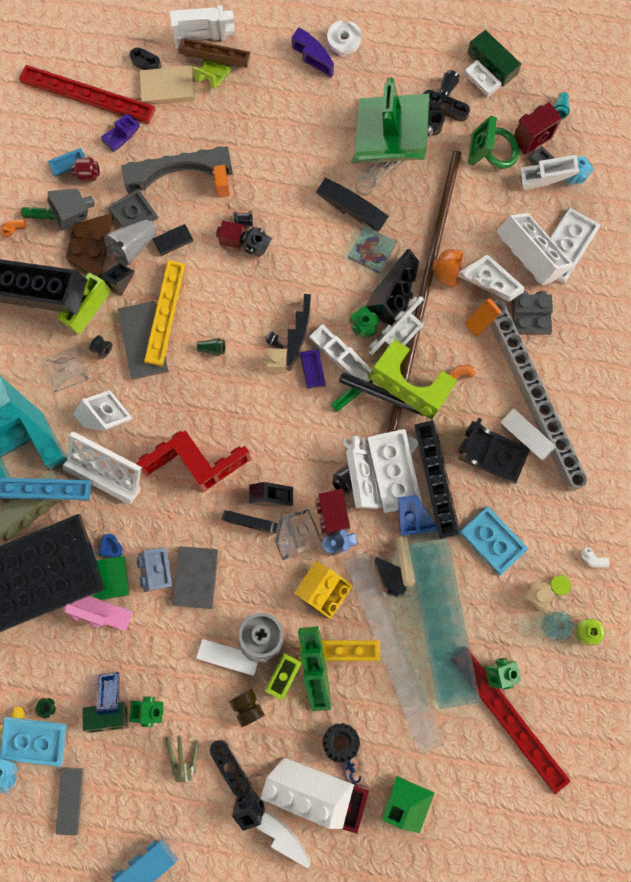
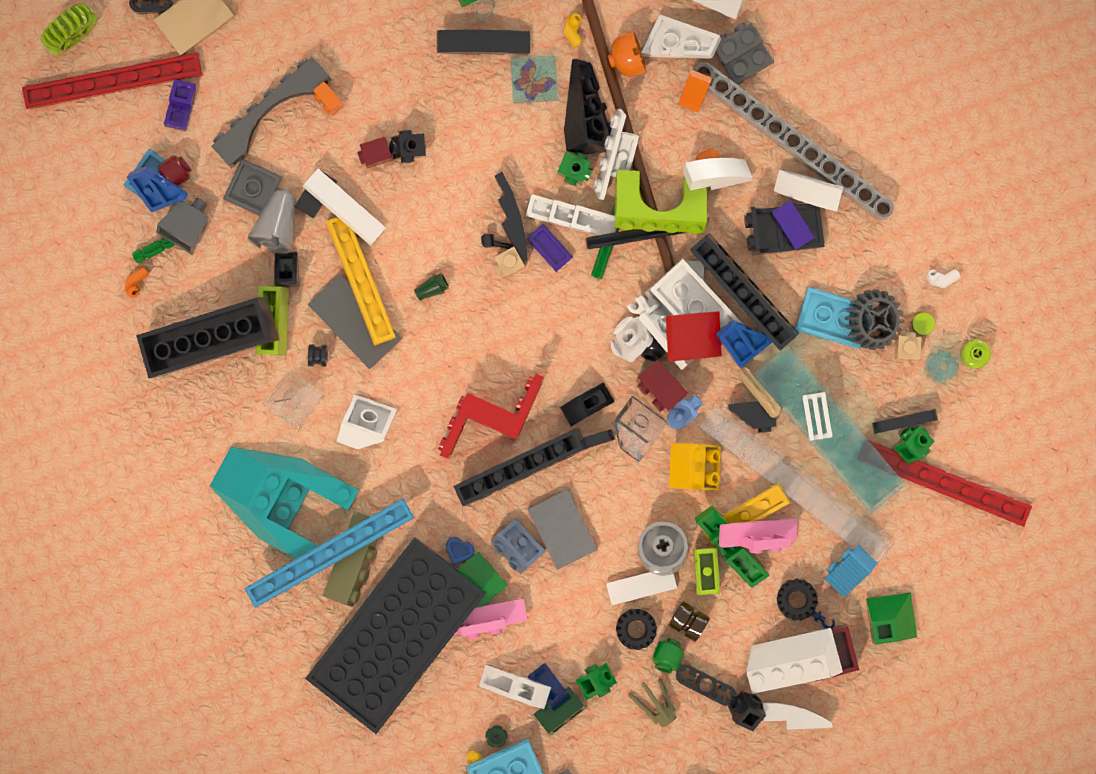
camera: 30 degrees left, 10 degrees up
(64, 171) = (155, 189): none -> blue wing
(78, 41) = (68, 28): none -> lime gear
(82, 677) = (514, 686): none -> white slope
(87, 244) = (230, 251): reddish brown wing -> none
(122, 487) = (410, 487): white fence -> none
(185, 257) = (344, 207): none -> white tile
(190, 689) = (650, 629): none -> black tyre
(191, 509) = (521, 467): none -> black brick
(214, 725) = (668, 656): none -> green head
(244, 218) = (377, 127): black bush -> none
(331, 465) = (629, 348): none -> white plate
(341, 672) = (759, 534): none -> bright pink bracket
(379, 487) = (693, 336): none -> red tile
(396, 745) = (850, 570): none -> dark azure brick
(419, 230) = (570, 29): none -> yellow arm
(434, 622) = (814, 398): none -> white tile
(465, 382) = (716, 173): none -> white slope
(501, 452) = (792, 225): none -> dark purple tile
(505, 651) = (904, 421): none -> black beam
(534, 563) = (862, 321): none -> dark grey gear

